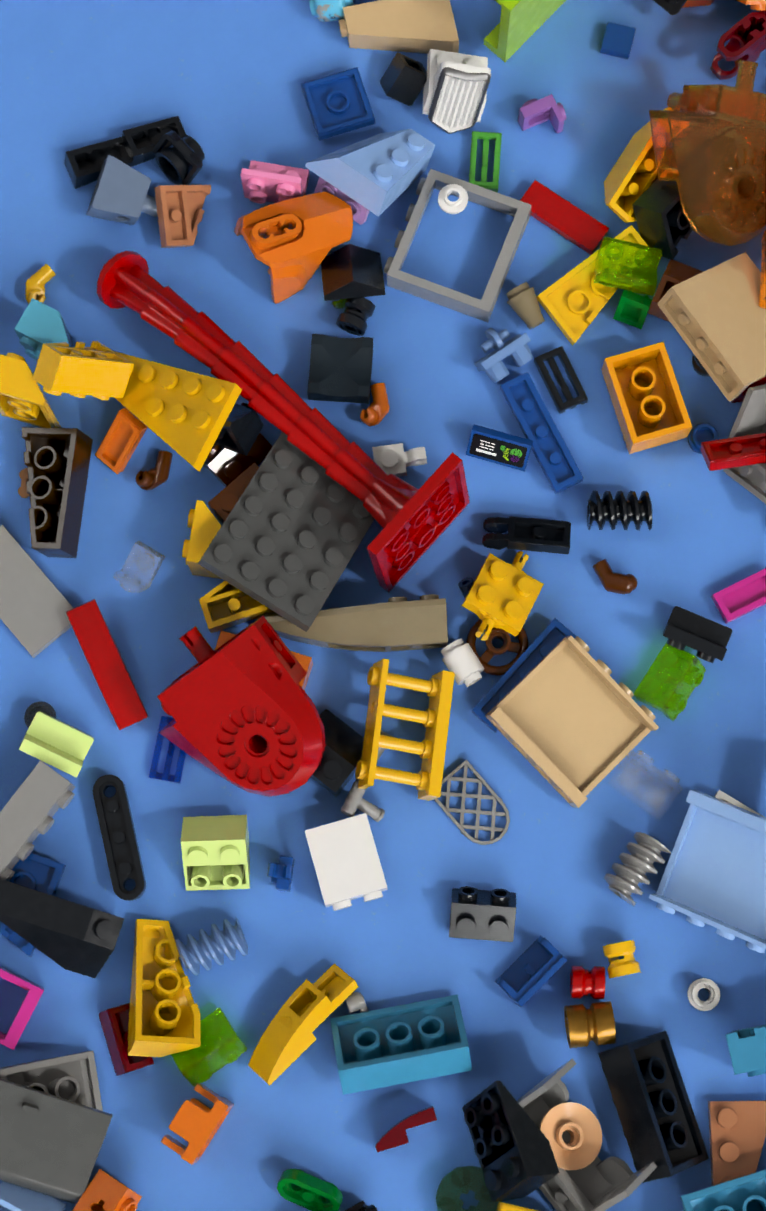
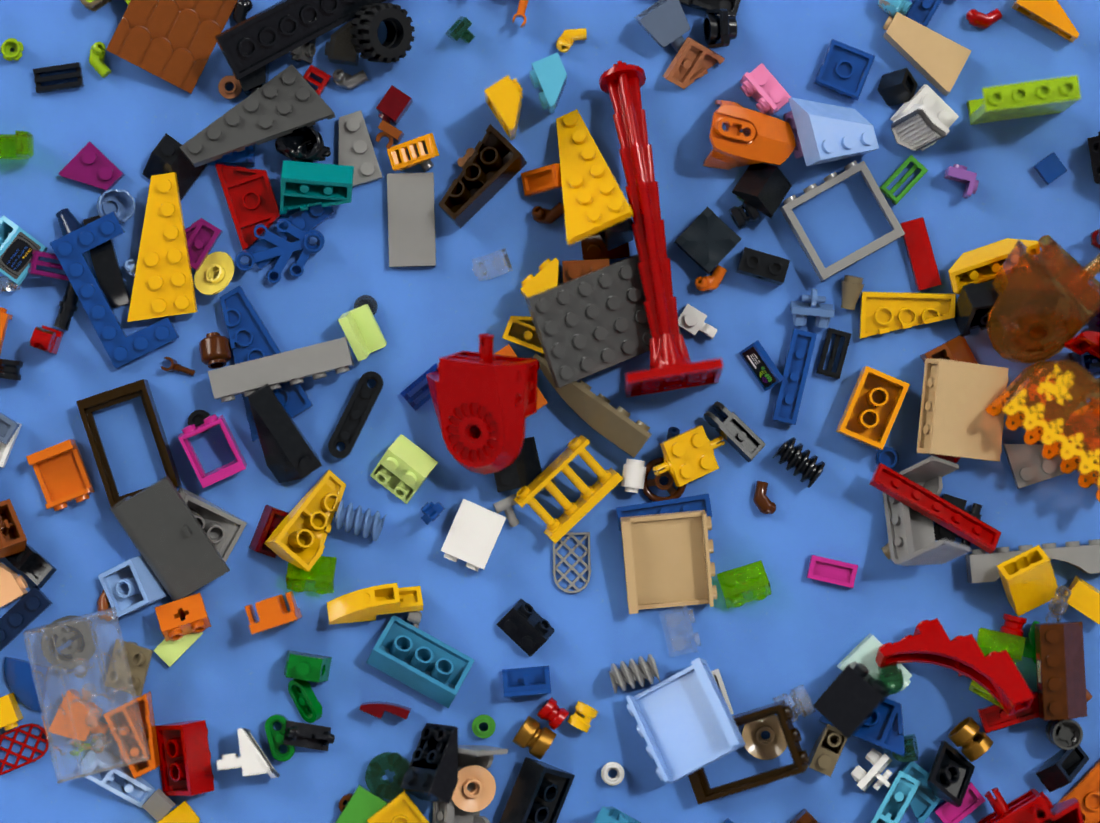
camera: 35 degrees right, 10 degrees up
(82, 370) = (552, 124): yellow wedge -> none
(107, 664) = (428, 307): red slope -> none
(282, 1152) = (307, 666): none -> green torso
(417, 349) = (763, 266): none -> black brick
(449, 206) = (860, 199): white plate -> none
(515, 1055) = (487, 719): none -> bright green plate
(627, 266) = (929, 320): clear neon green bracket -> none
(632, 308) = (912, 346): green tile -> none
(697, 632) = (782, 571): black bracket -> none

